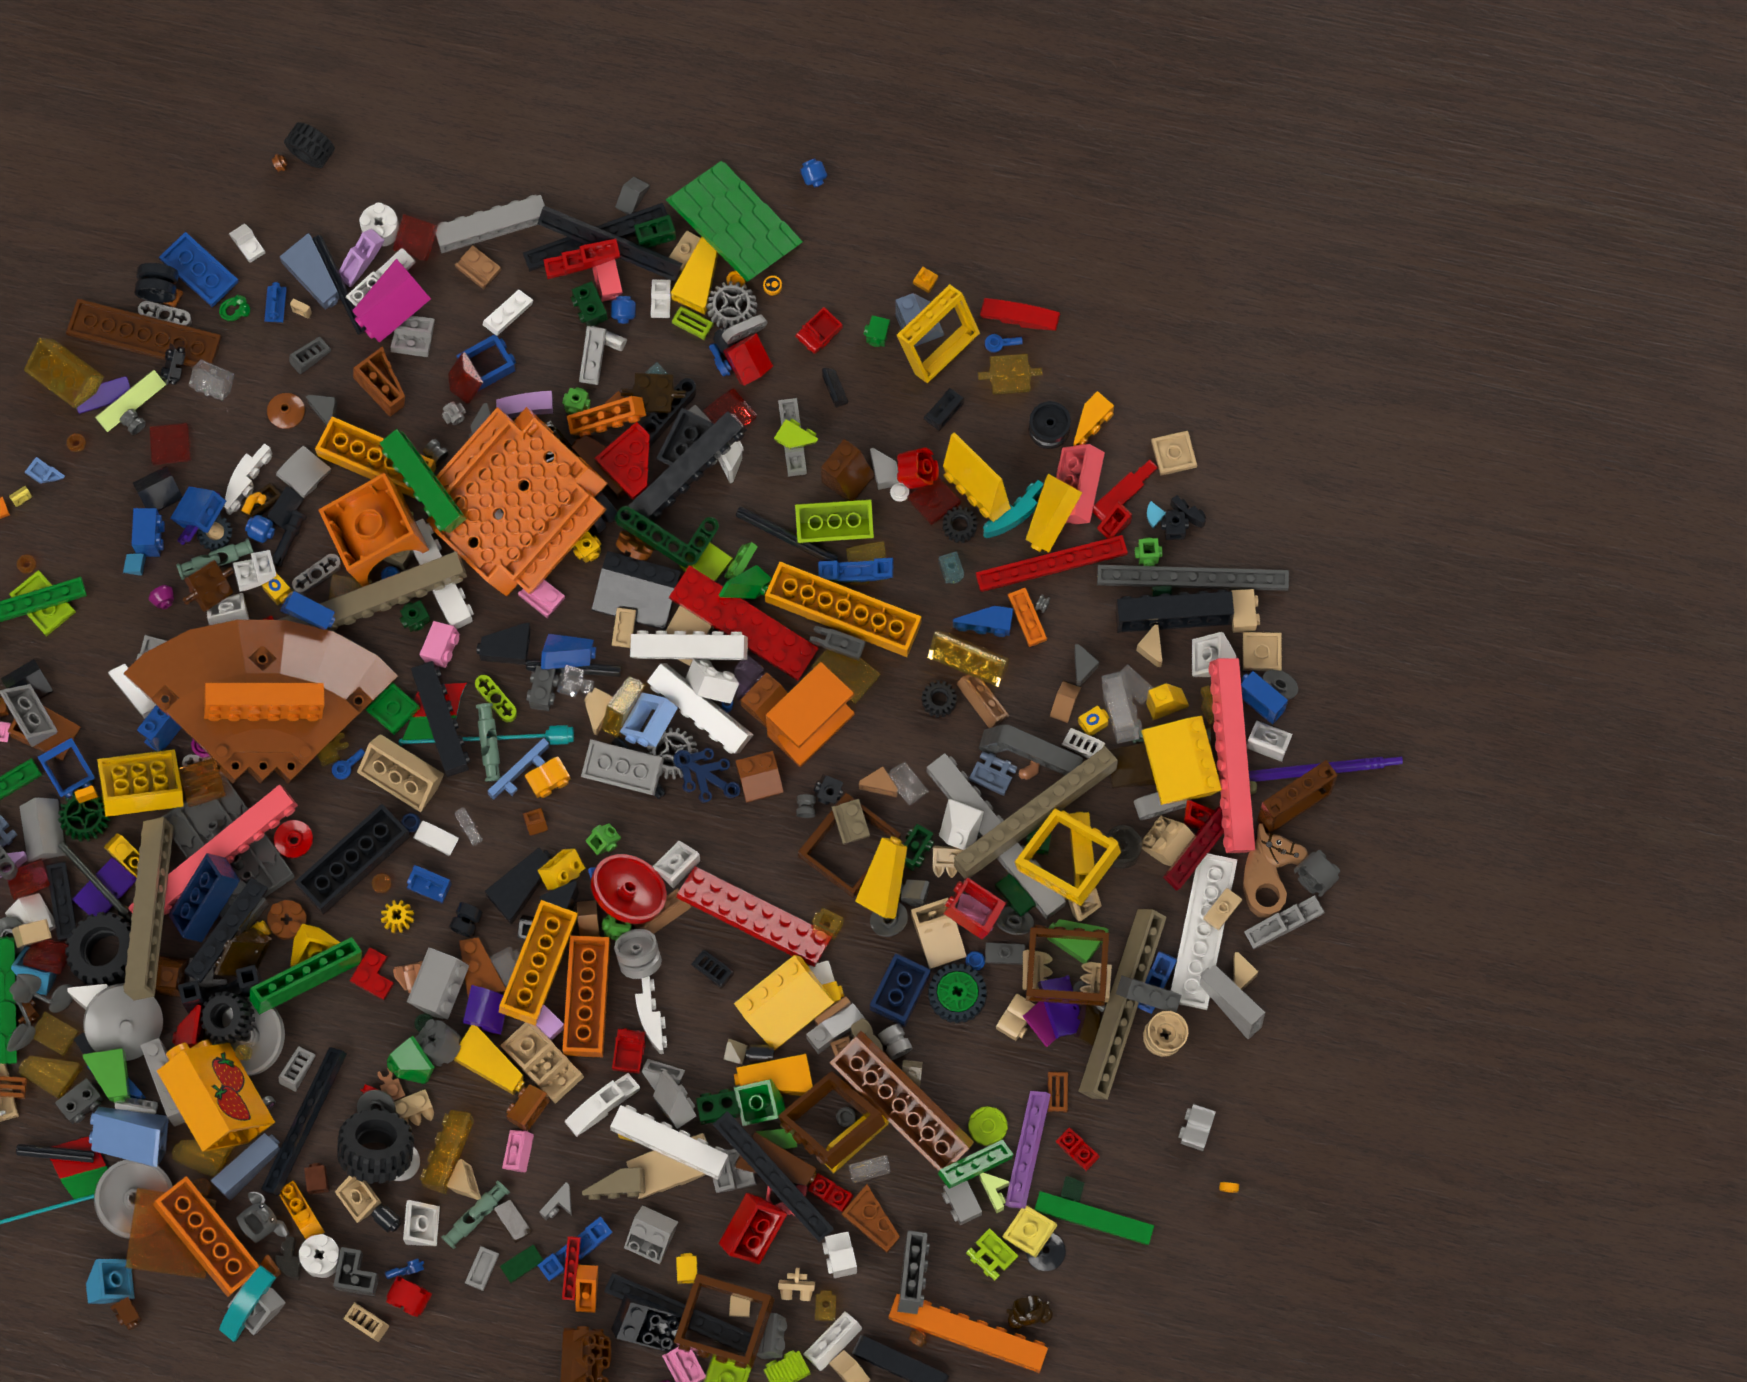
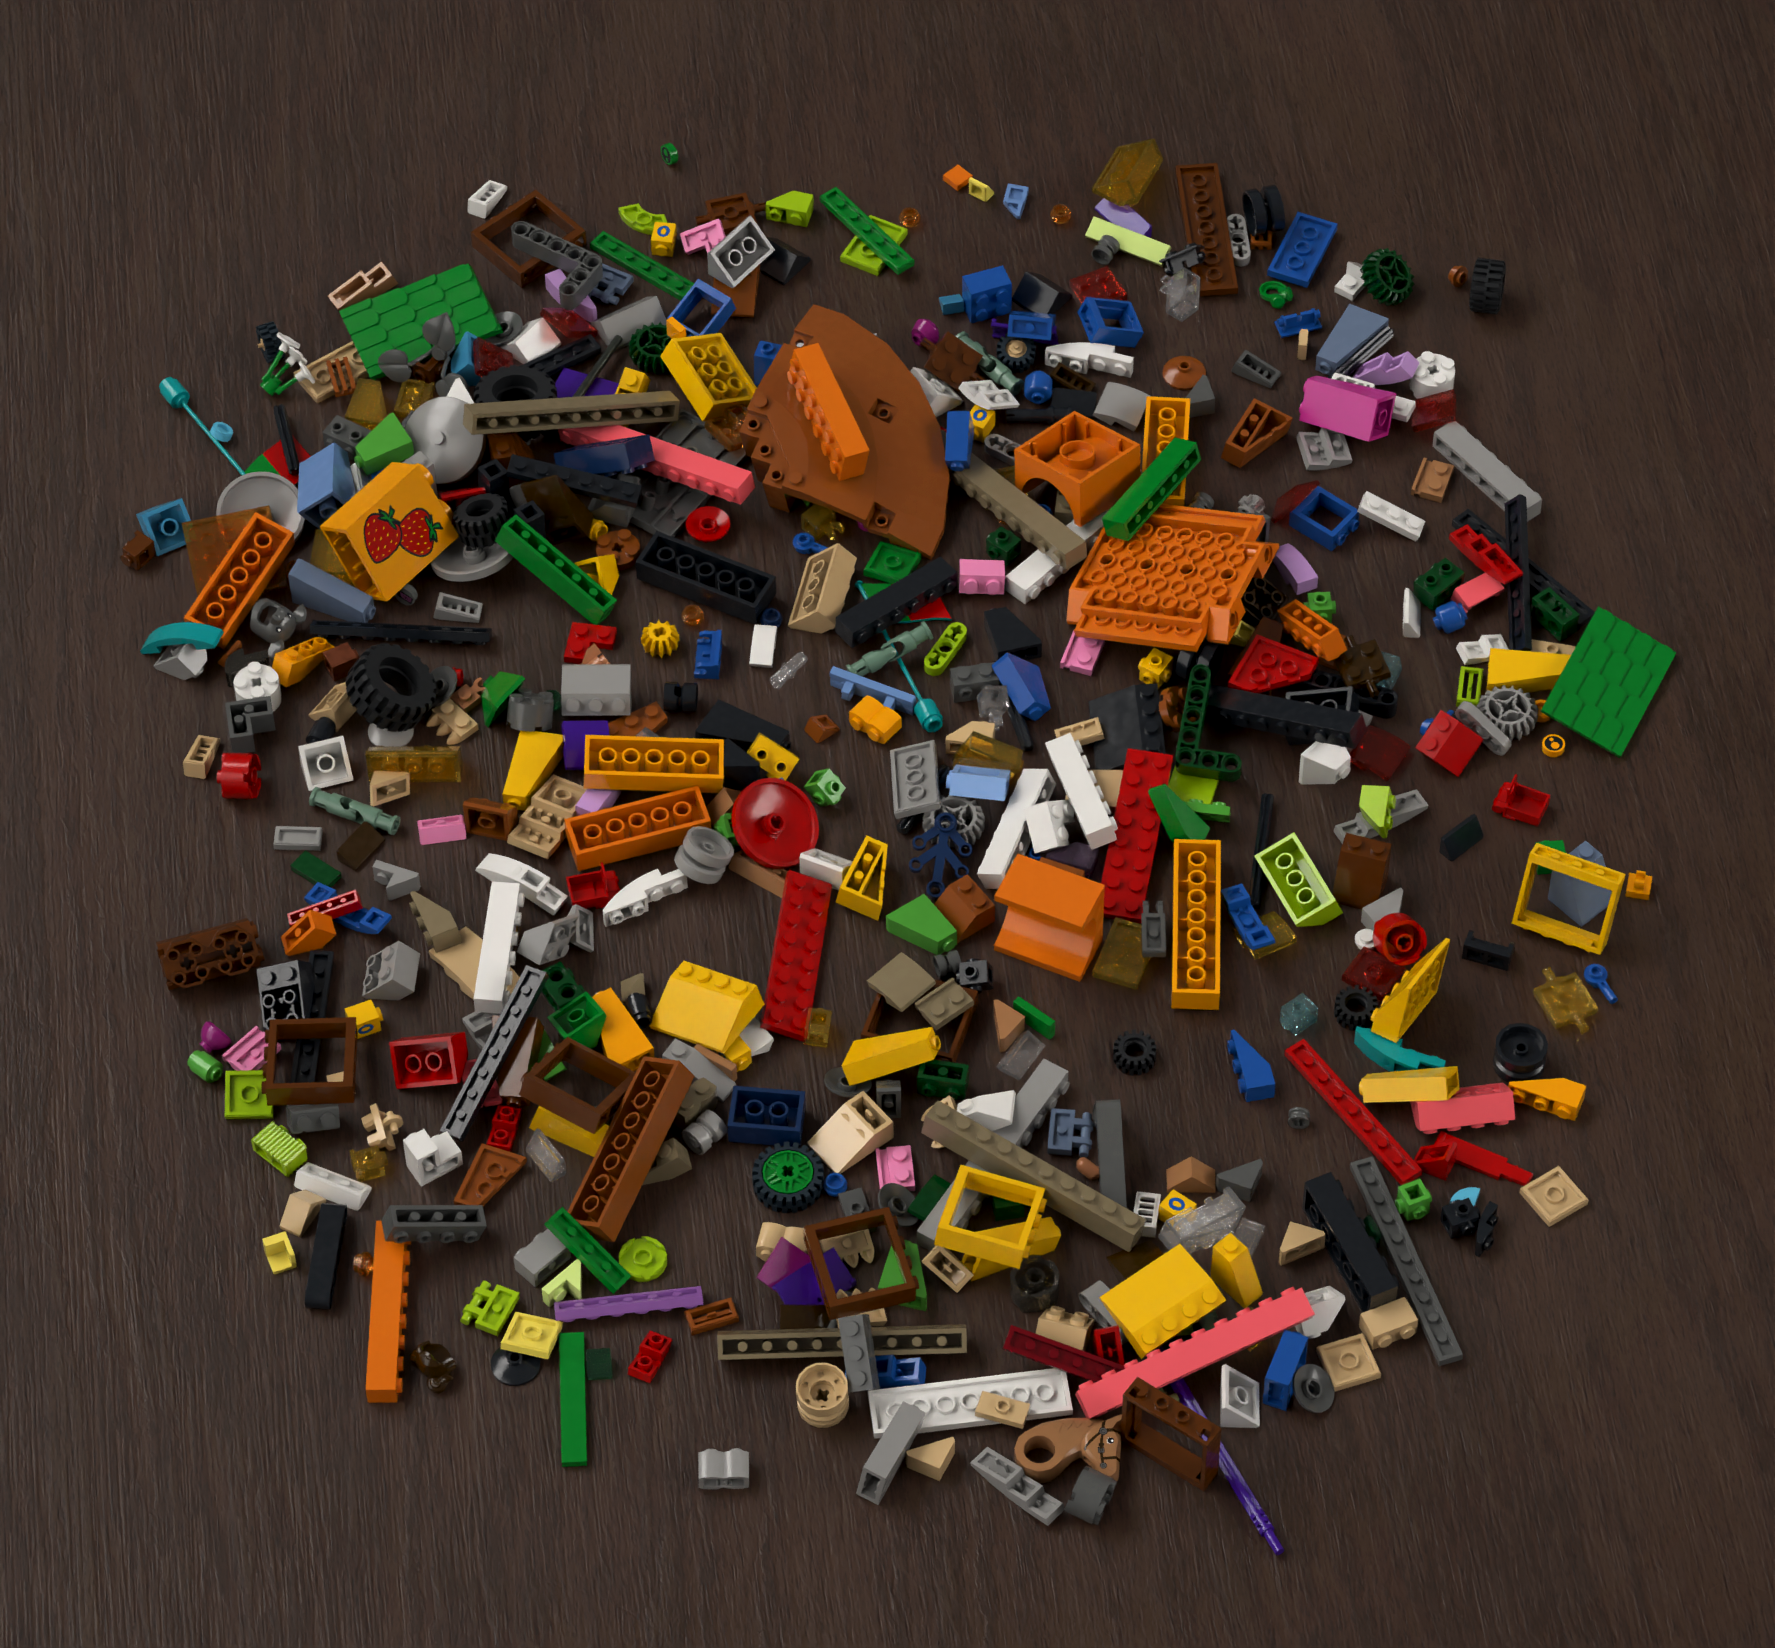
camera: 70 degrees right, 20 degrees down
(21, 1205) = (221, 431): none -> medium azure tile
(31, 933) = (508, 336): tan slope -> none
(218, 460) = (1092, 314): none -> blue window
(246, 1050) = (452, 549): clear yellow hinge -> none
(252, 500) = (1065, 367): light orange arm -> none
(264, 216) = (1382, 279): none -> dark green gear
(413, 1266) = (277, 775): blue plate -> none
(592, 355) = (1380, 604): light grey tile -> none
(631, 195) = (1591, 584): dark grey slope -> none
(708, 840) = (865, 879): none -> yellow wedge
(719, 982) = (715, 952): black slope -> none
(763, 810) = (923, 926): none -> bright green slope
(813, 173) = (1708, 738): blue head -> none
(820, 846) = (901, 982): none -> dark tan slope
(880, 760) = (1035, 1018): none -> green tile
(968, 658) = (1196, 1059): clear yellow slope -> none
(981, 895) = (887, 1172): red window -> none
(982, 700) = (1156, 1097): medium nougat slope -> none
(1019, 313) = (1643, 986): red slope -> none
(1027, 617) = (1274, 1108): orange plate -> none
(1229, 1187) = (662, 1524): light orange tile -> none

